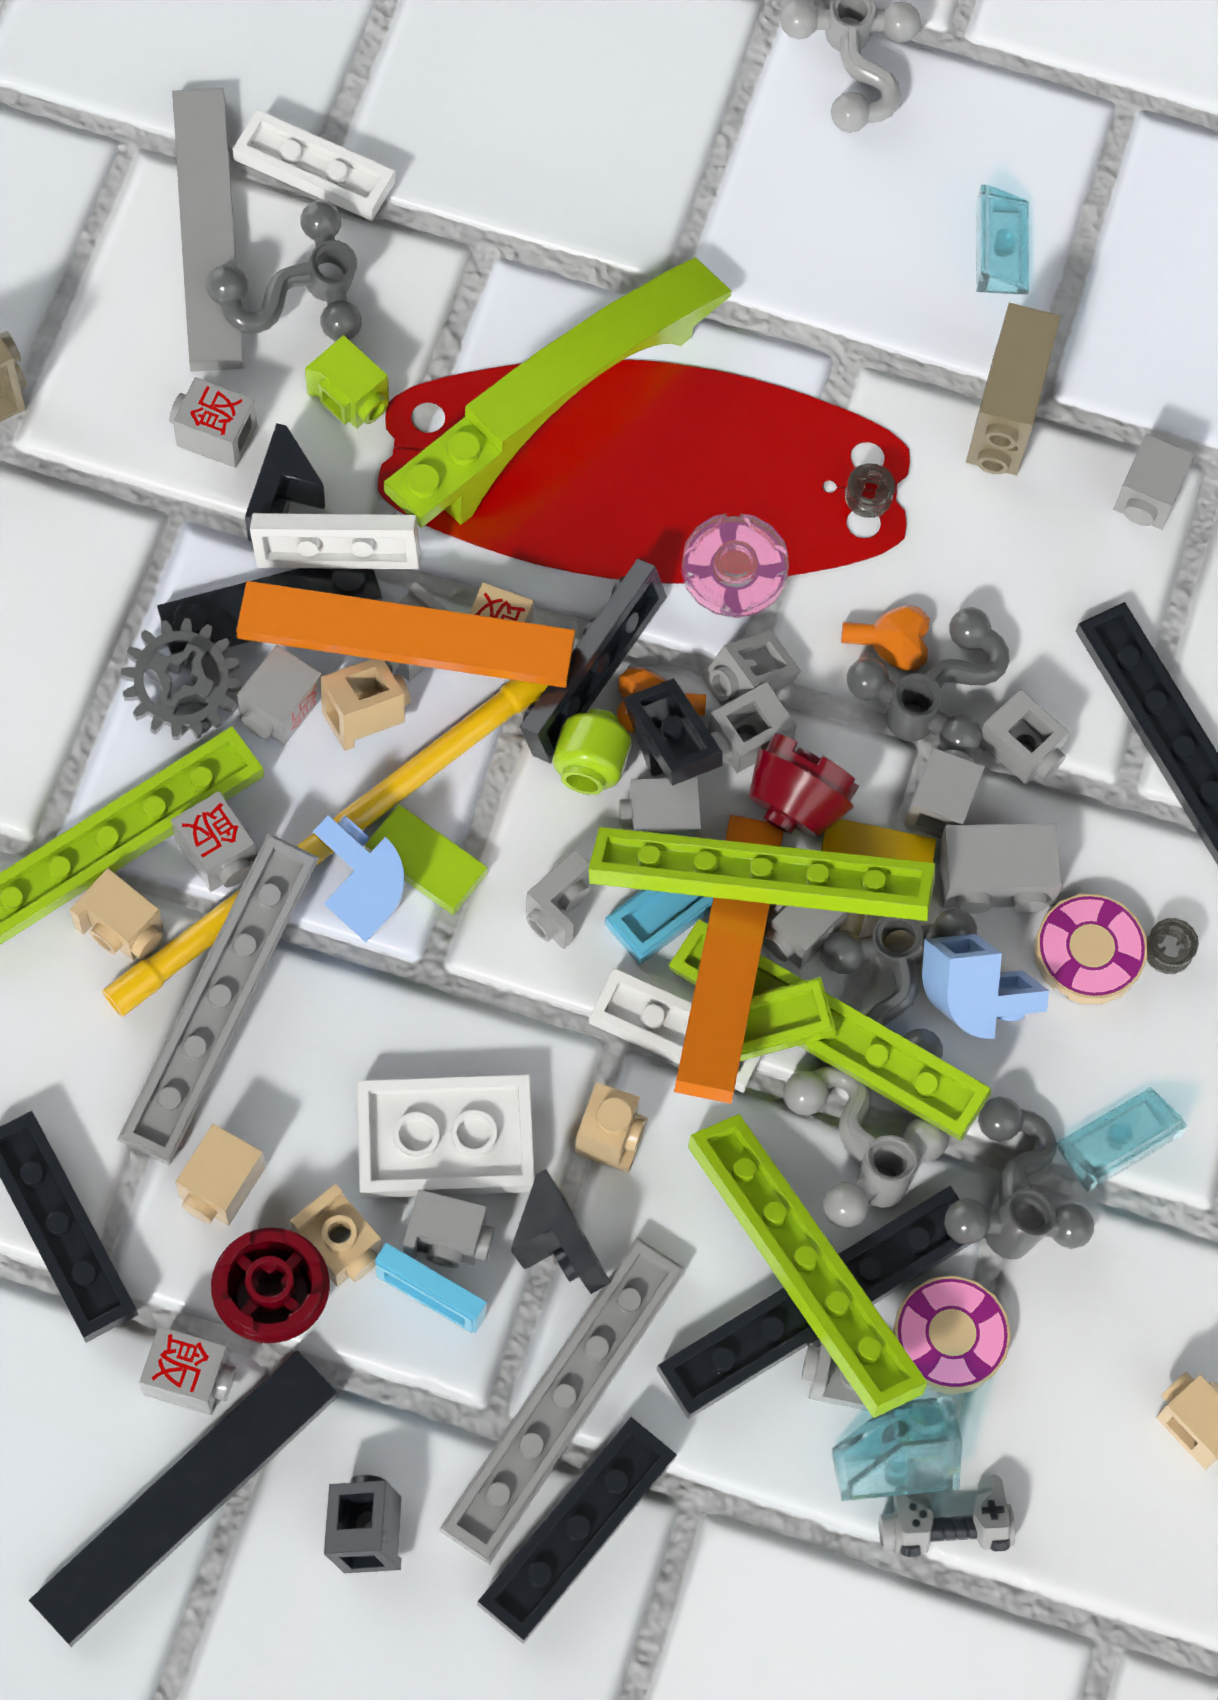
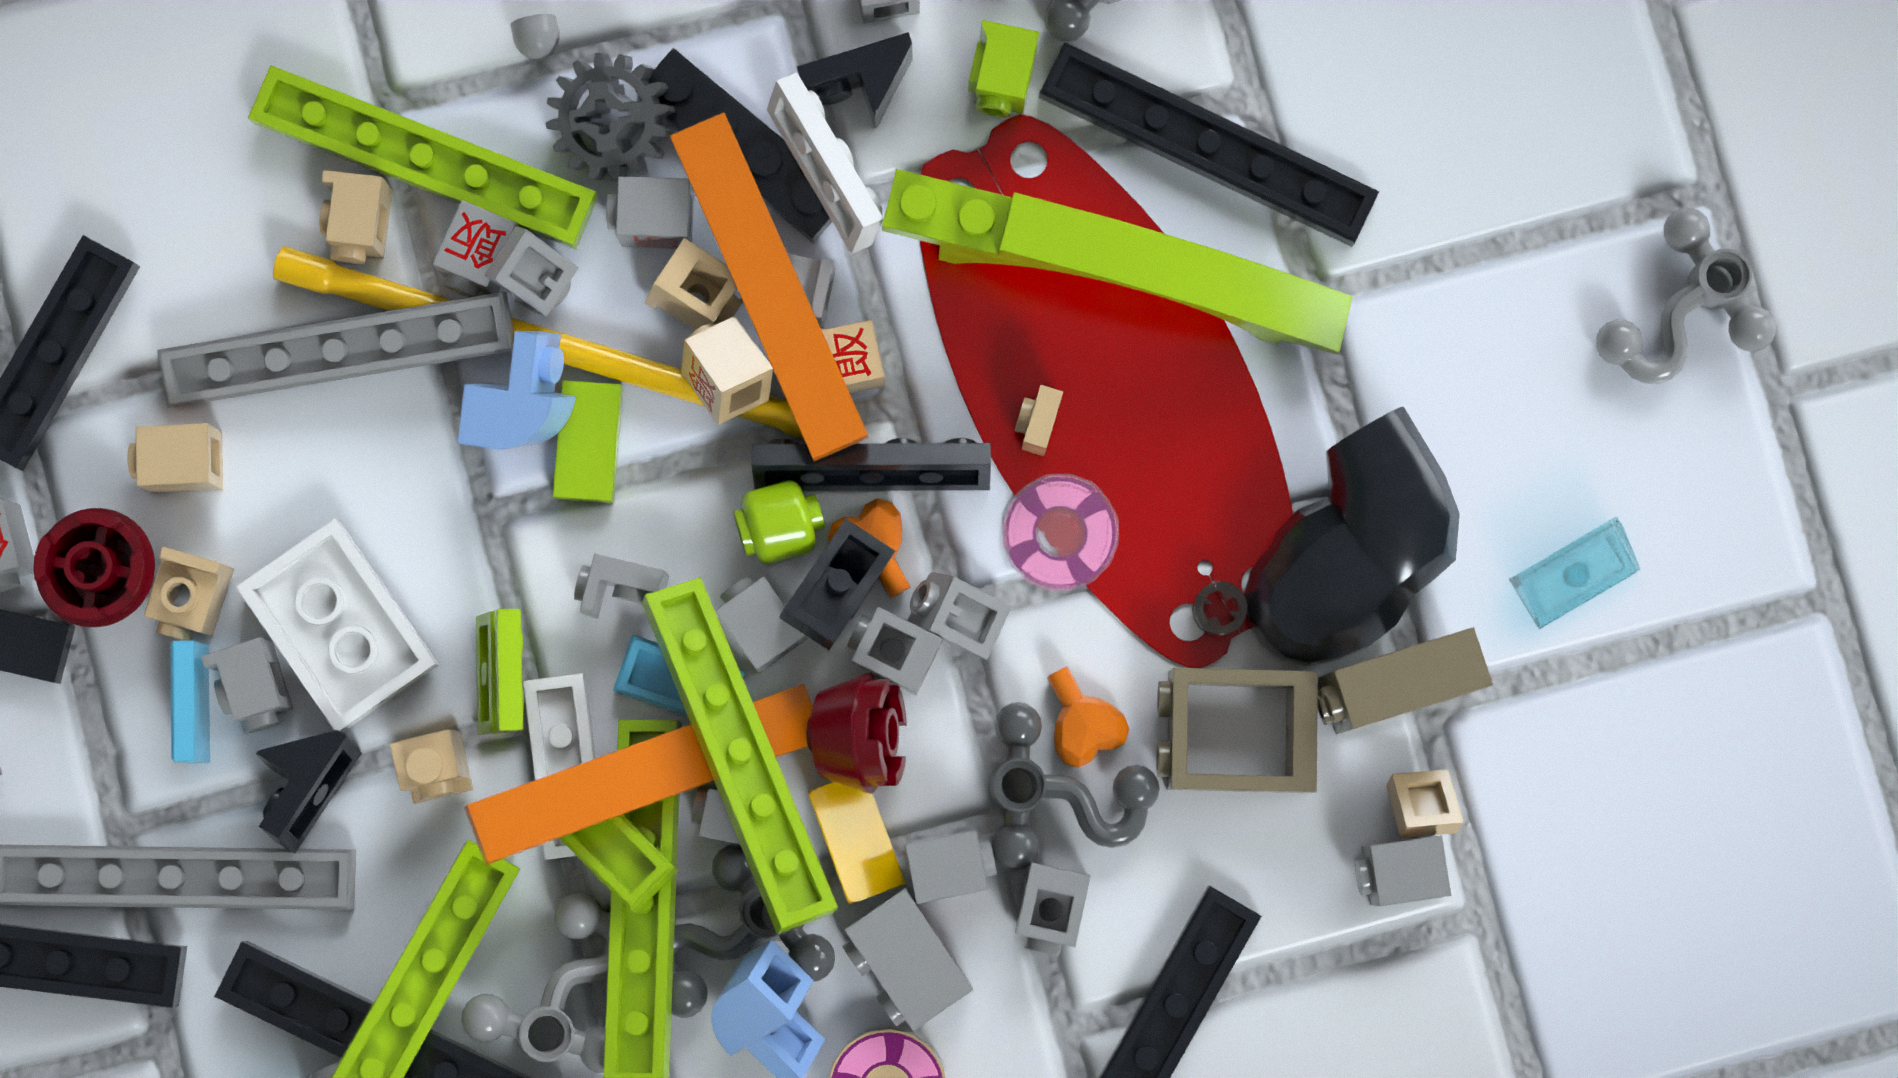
camera: 60 degrees right, 15 degrees up
(72, 698) = (536, 35): none -> light grey hinge
(266, 804) = (532, 272): none -> light grey bracket
(447, 708) = (726, 369): none -> brick
(506, 288) = (1208, 144): none -> black tile
(571, 1026) = (499, 672): none -> lime plate
(641, 520) = (1038, 418): none -> tan plate
(895, 361) = (1361, 554): none -> black piece
(996, 487) = (1300, 730): none -> dark tan window
(1111, 439) = (1424, 803): none -> tan plate

